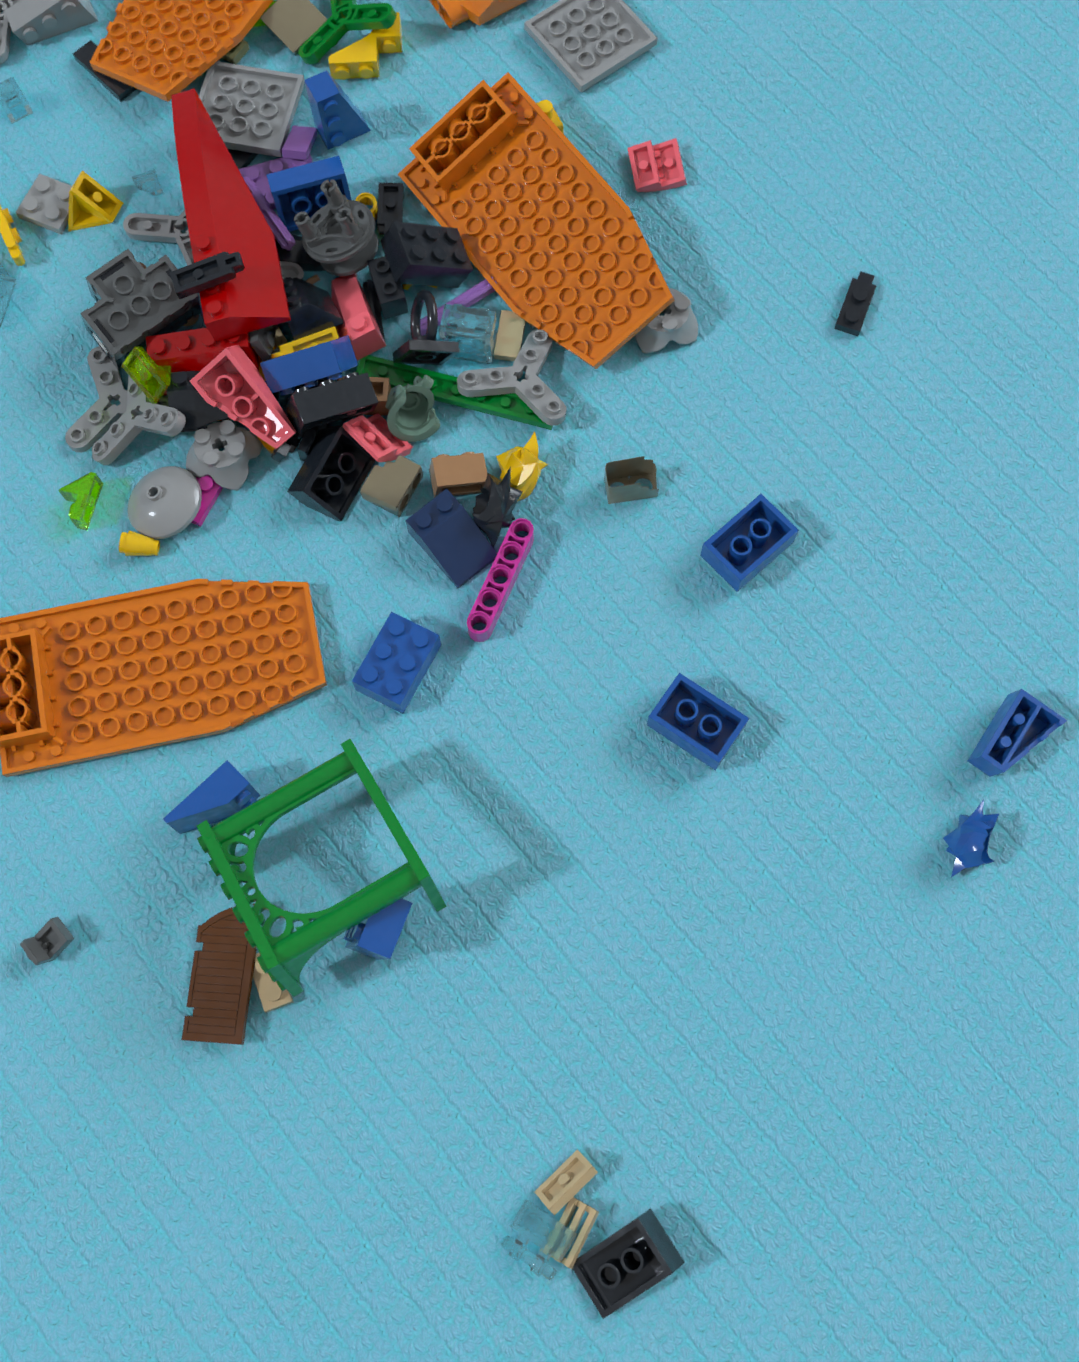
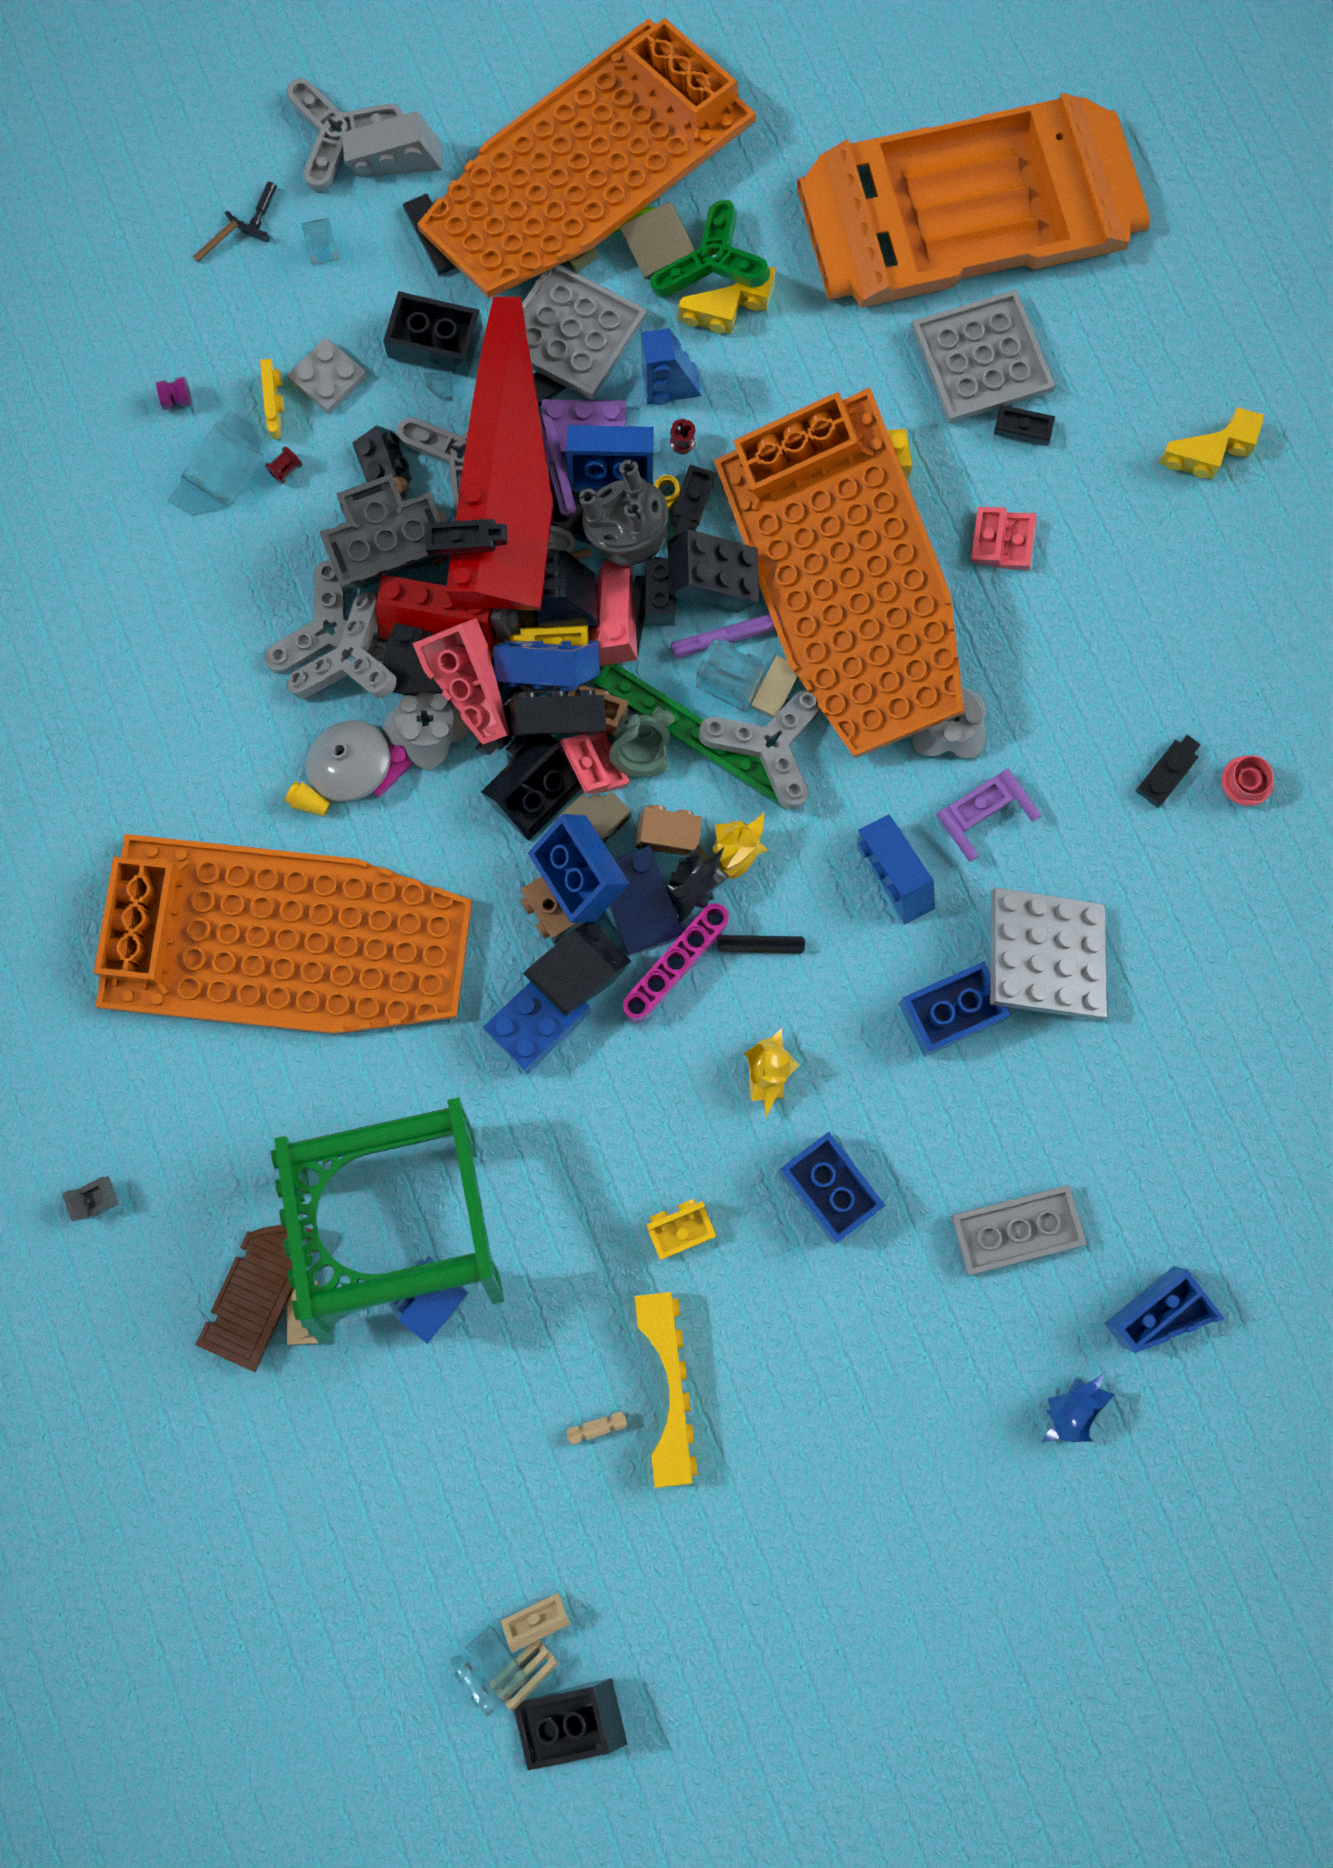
camera: 15 degrees right, 5 degrees up
(34, 282) = (283, 465): none -> dark red bush
(85, 494) = (269, 724): clear neon green slope -> none
(90, 204) = (370, 392): yellow slope -> none
(112, 243) = (381, 454): none -> black bracket
(129, 142) = (433, 333): none -> black brick
(148, 376) = (371, 622): clear neon green slope -> none
(213, 800) = (310, 1106): blue slope -> none
(299, 142) = (617, 389): medium lavender tile -> none
(363, 167) = (681, 437): none -> dark red bush
(378, 567) = (551, 917): none -> medium nougat brick
(391, 522) = (578, 868): none -> blue brick
(418, 605) = (578, 968): none -> black slope
(425, 348) = (678, 678): black tile -> none
(563, 993) = (596, 1428): none -> tan axle
(567, 543) = (761, 944): none -> black axle
(579, 798) = (681, 1229): none -> yellow bracket
(586, 885) = (671, 1456): none -> yellow arch
(610, 641) = (769, 1070): none -> yellow hair
(620, 471) = (844, 885): dark tan piece -> none
(642, 75) = (1024, 425): none -> black plate
(667, 445) = (897, 868): none -> blue wedge
(712, 376) = (980, 805): none -> medium lavender plate
(795, 54) = (1204, 453): none -> yellow arch
(811, 474) = (1048, 954): none -> light grey plate
(867, 707) = (1018, 1230): none -> light grey plate
(923, 289) = (1247, 780): none -> coral piece

